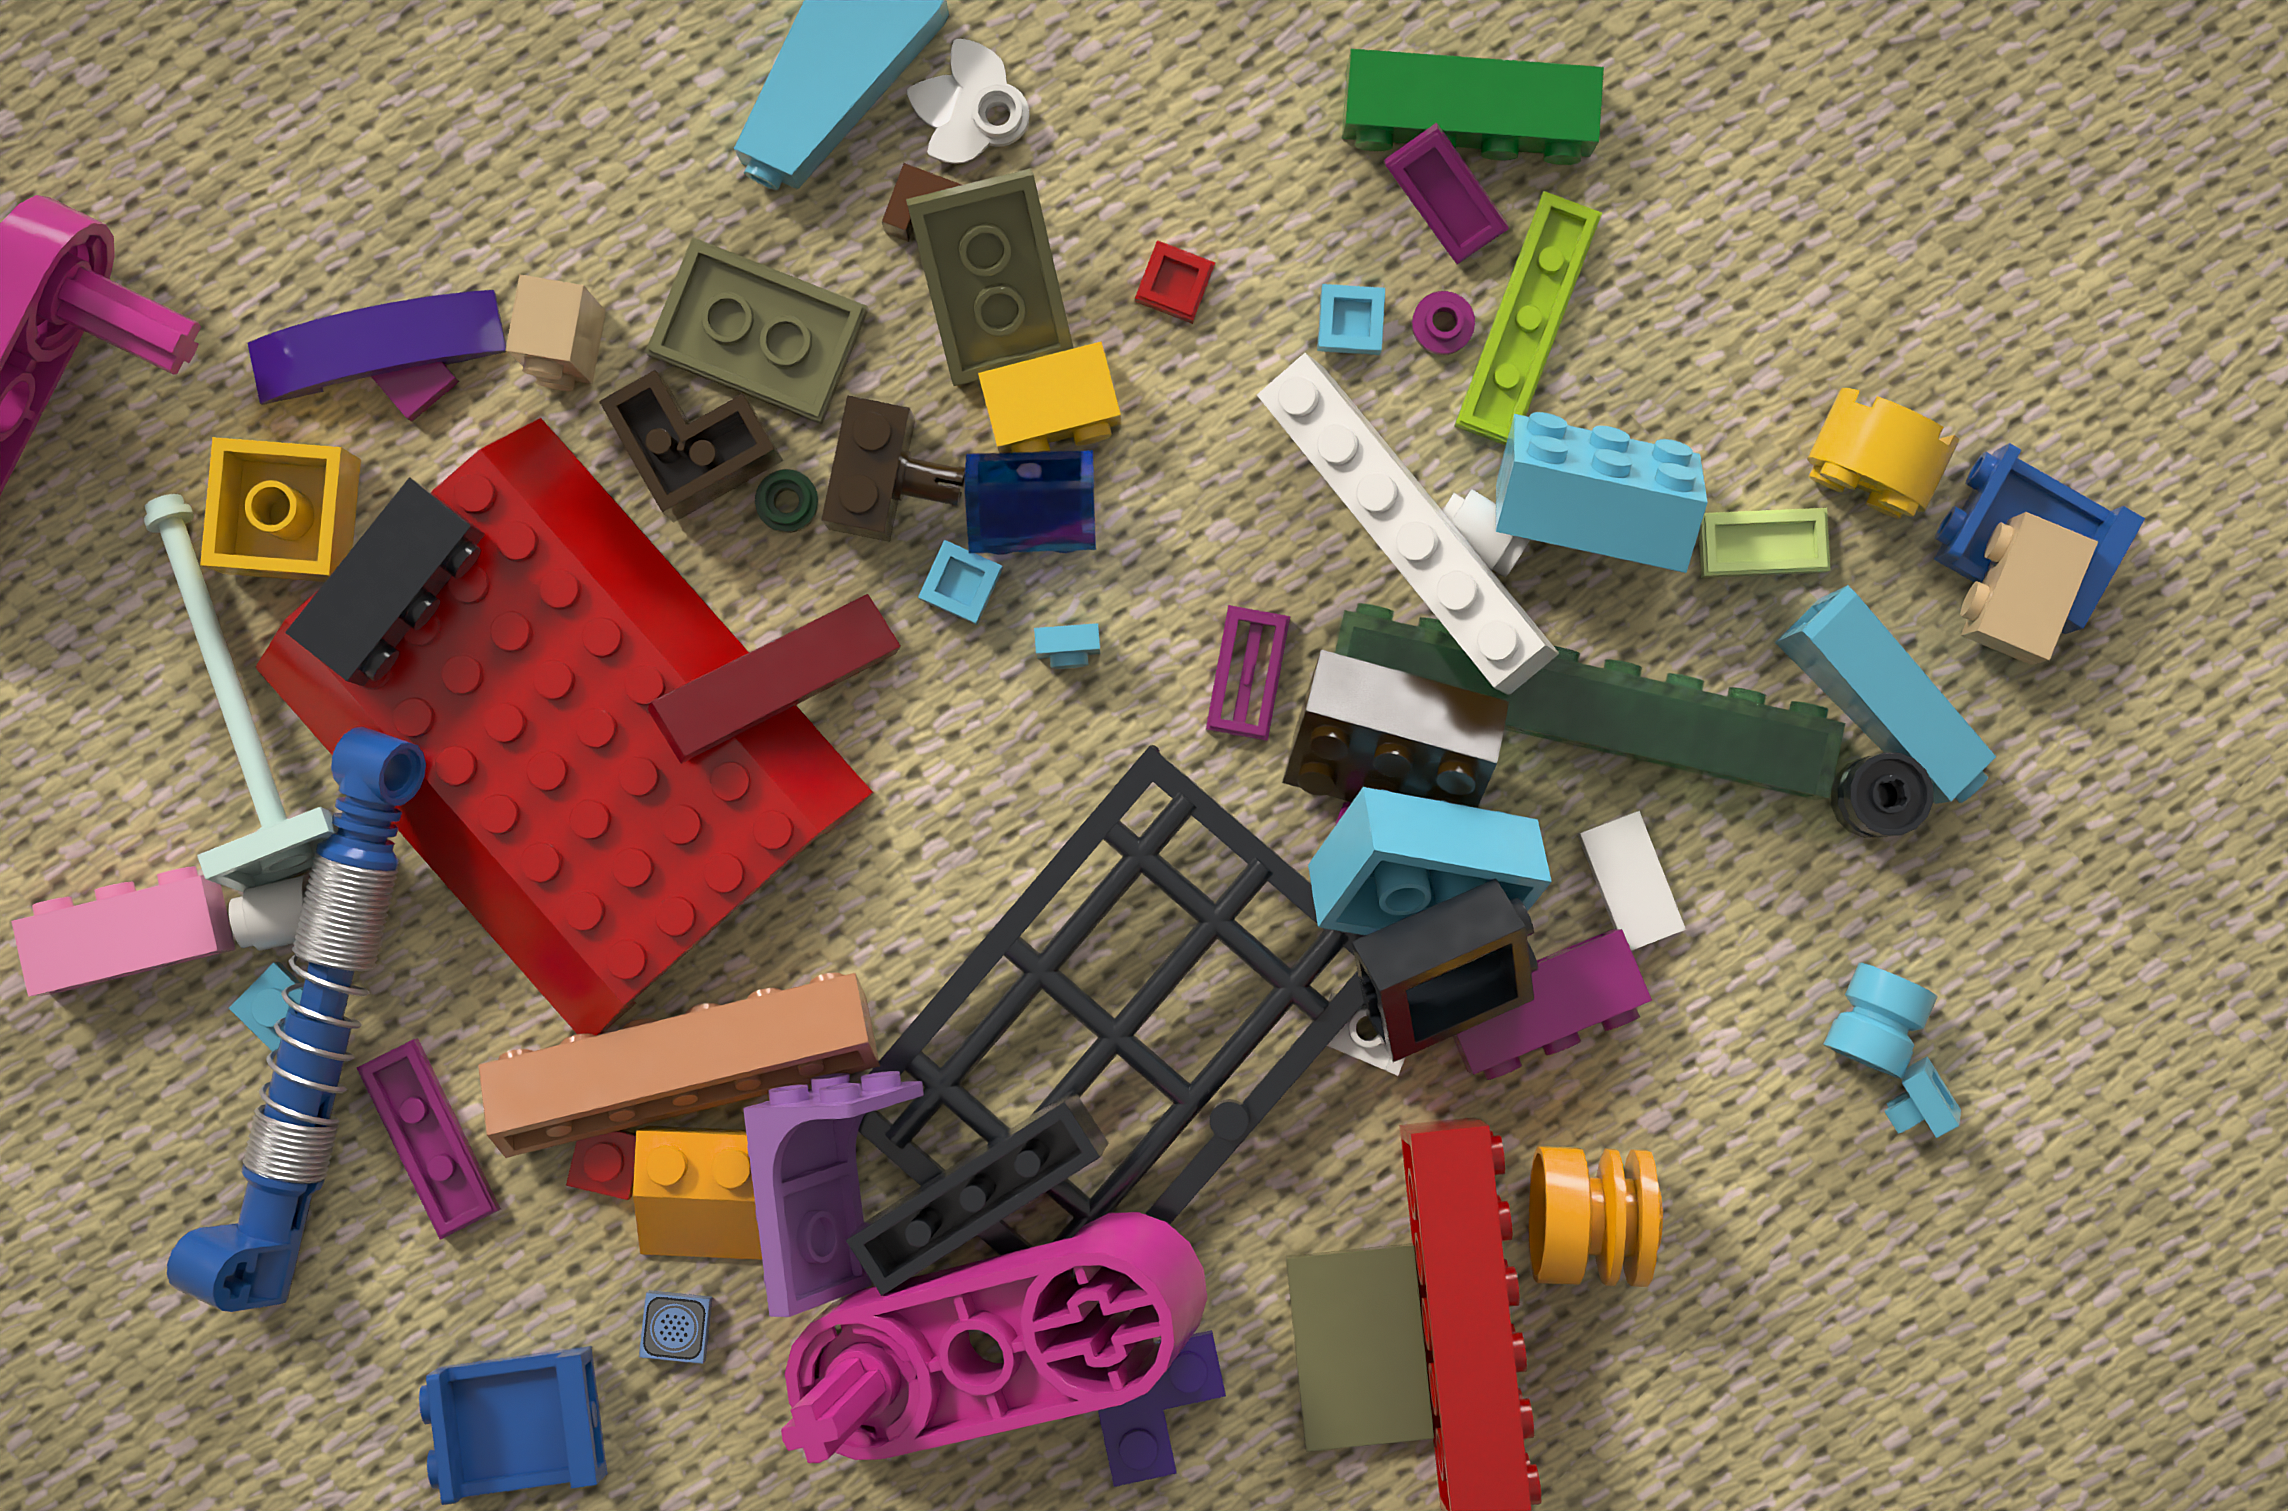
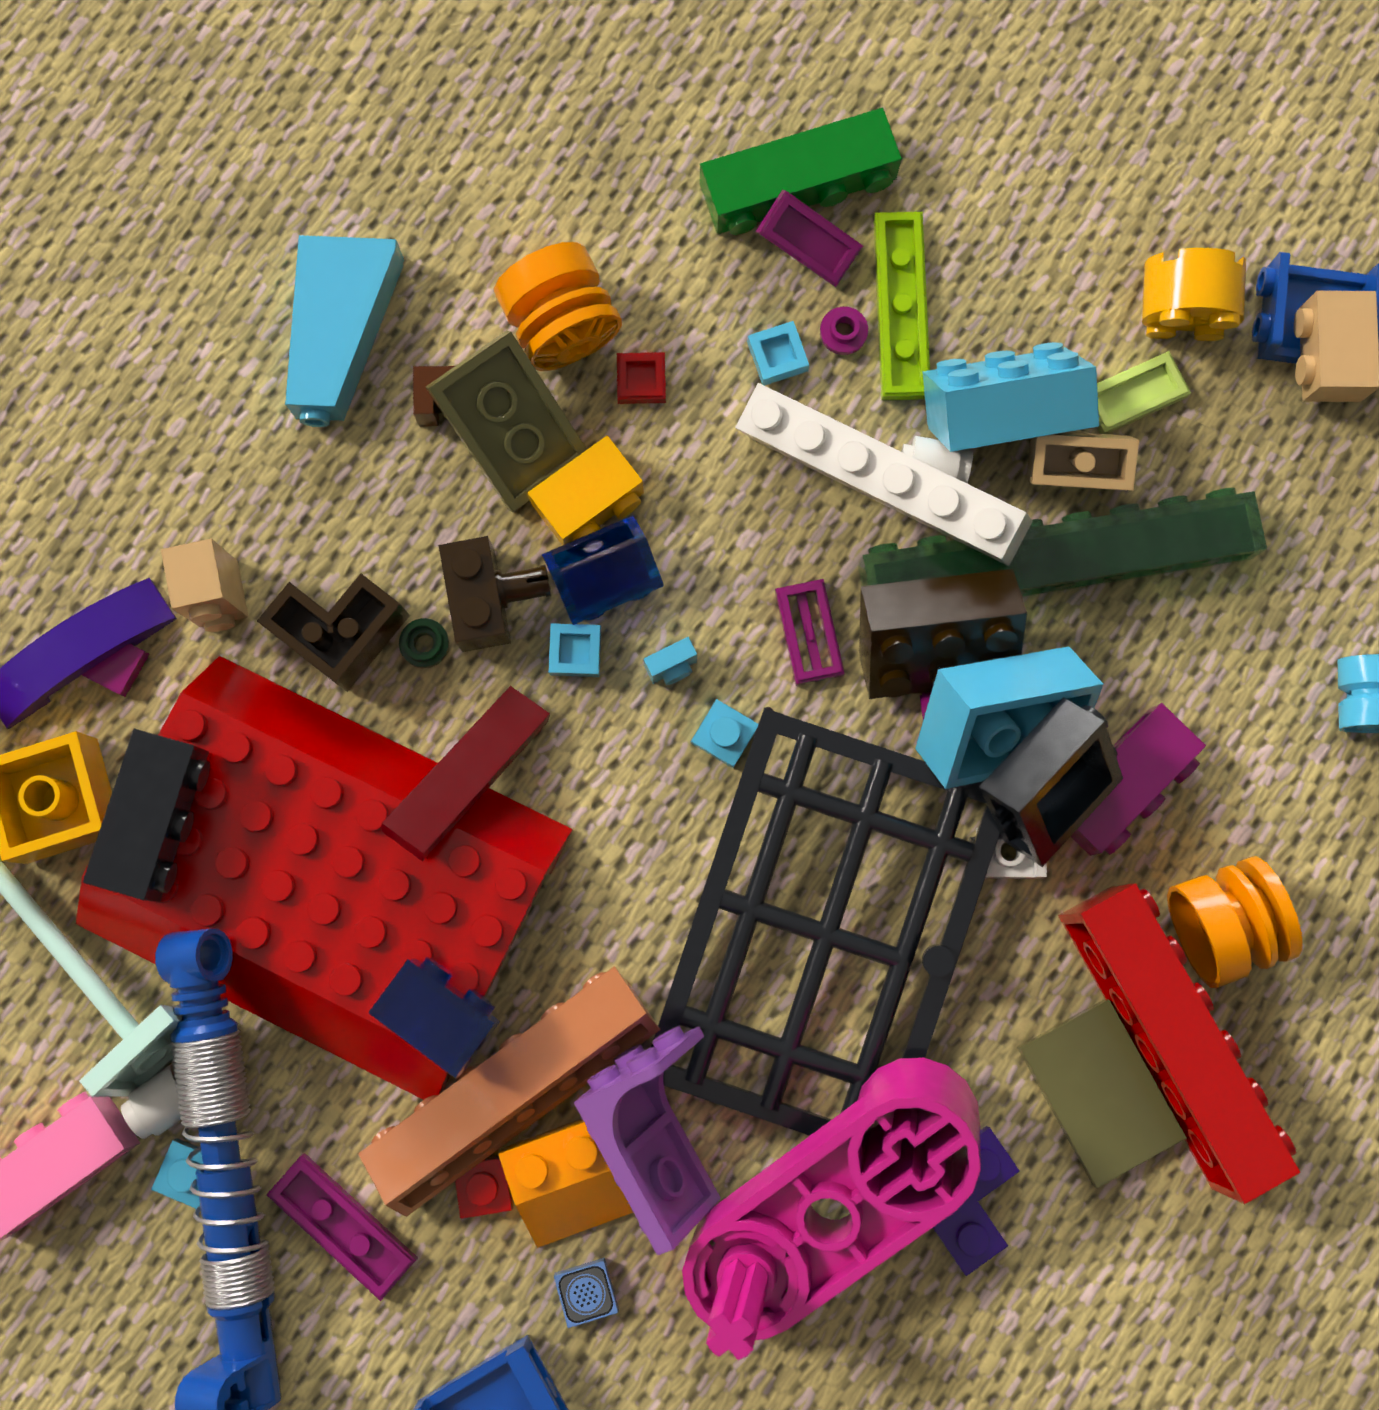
camera: 20 degrees left, 5 degrees down
(627, 946) = (436, 1015): none -> clear blue brick
(757, 330) = (353, 530): olive tile -> none
(960, 103) = (437, 313): white plate -> none
(977, 1192) = (774, 1094): black brick -> none
(1096, 753) = (724, 733): none -> medium azure plate
(1105, 159) = (557, 305): none -> light orange wheel
(1631, 880) = (1147, 667): white tile -> none
(1659, 605) = (1083, 460): none -> tan brick
(1882, 795) = (1303, 532): black wheel -> none
(1886, 692) = (1267, 456): medium azure slope -> none

